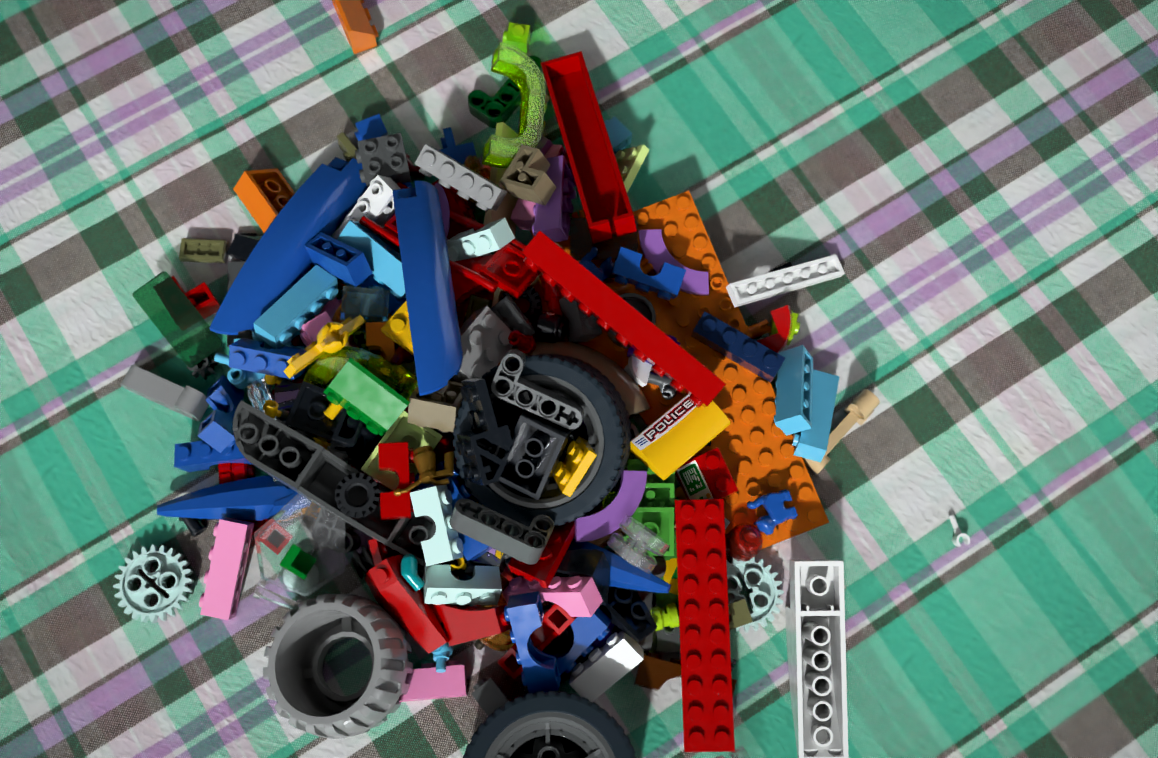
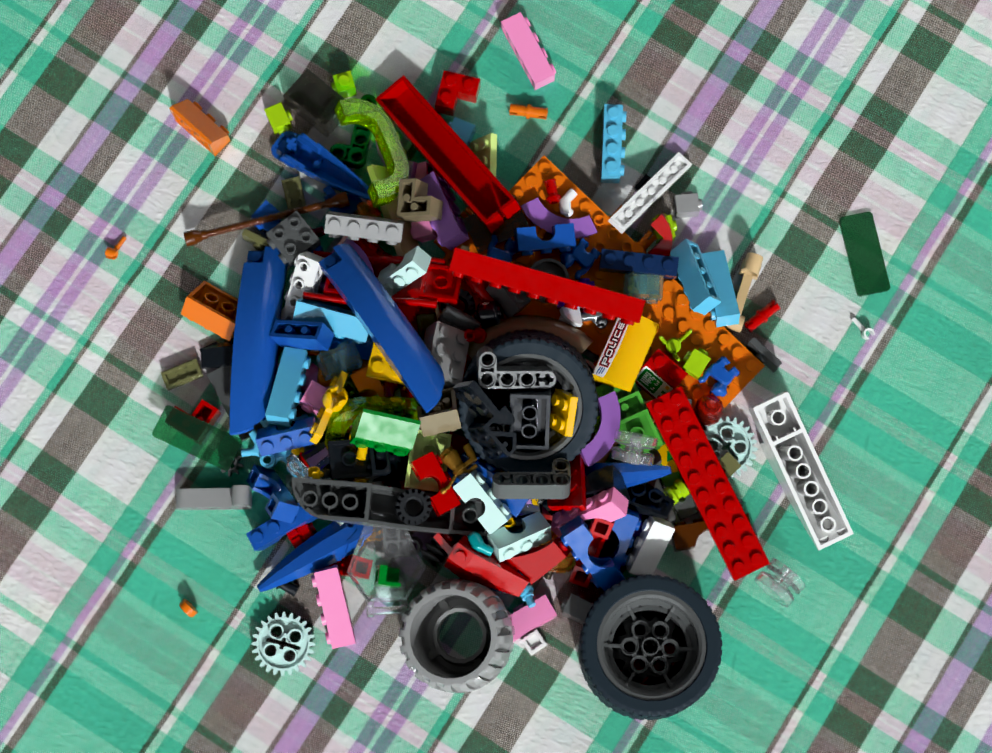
camera: 20 degrees left, 5 degrees up
(75, 496) = (188, 608): none -> orange tile
(201, 102) = (112, 253): none -> orange hand
(288, 118) = (194, 237): none -> reddish brown hose
(412, 124) = (293, 192): none -> olive plate
(427, 713) = (533, 642): none -> white tile
(435, 43) = (278, 118): none -> lime brick
(450, 101) = (317, 162): none -> blue piece
(476, 39) = (314, 102): none -> clear smoke piece
(631, 90) = (455, 87): none -> red brick
(678, 232) = (552, 192): none -> red pin
(678, 309) = (581, 256): none -> blue animal
(688, 248) = (565, 203): none -> white arm
(695, 146) = (528, 111): none -> orange pin
(723, 86) = (528, 51): none -> bright pink brick
(735, 373) = (644, 287): none -> clear light blue brick
(737, 452) = (674, 345): none -> lime plant
(753, 482) = (696, 362): none -> lime brick
(767, 215) = (612, 143): none -> medium azure brick
(820, 313) = (687, 205): none -> light grey brick
(833, 509) = (763, 354): none -> dark grey plate
(849, 467) = (761, 316): none -> red pin
(993, 451) = (864, 254): none -> clear green piece

